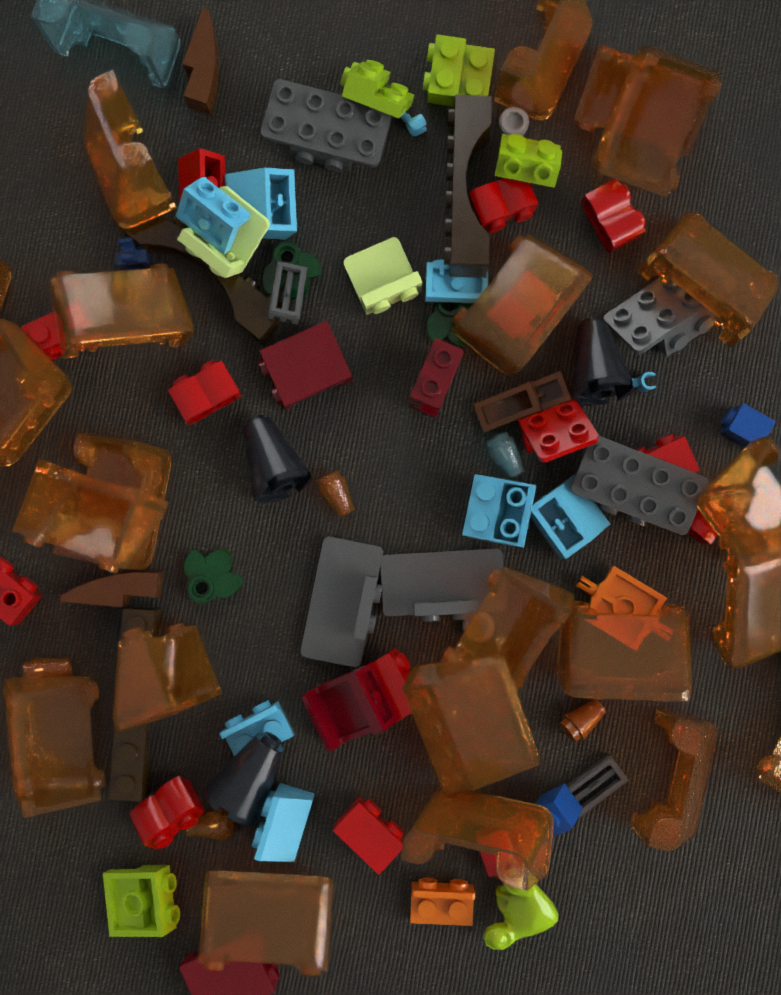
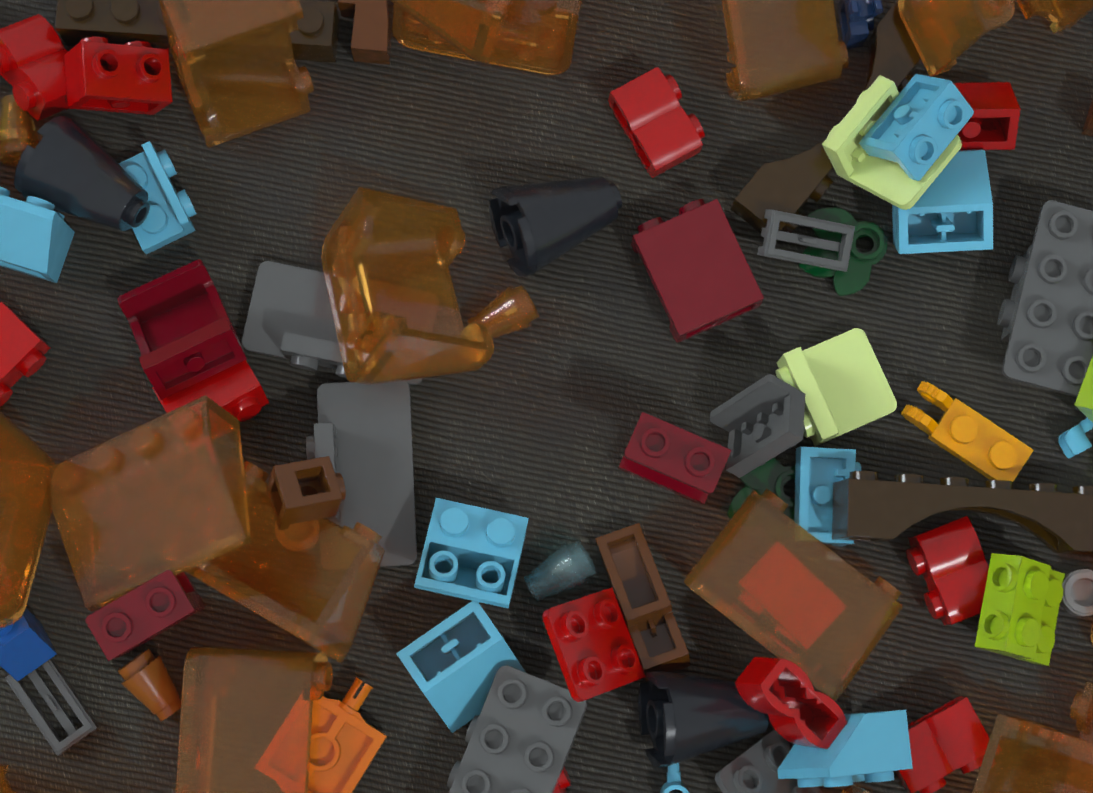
camera: 90 degrees right, 5 degrees down
(174, 757) = (117, 77): none -> red brick
(213, 571) = (388, 136): dark green plate -> none
(327, 563) = (396, 293): none -> clear orange windscreen
(410, 321) = (761, 423): none -> dark grey bracket
(414, 191) = (969, 436): none -> light orange hinge
(454, 613) = (309, 478): none -> reddish brown brick
(546, 725) = (144, 613): none -> dark red panel
(594, 303) = (790, 701): none -> red brick
(620, 268) = (864, 750): none -> medium azure slope

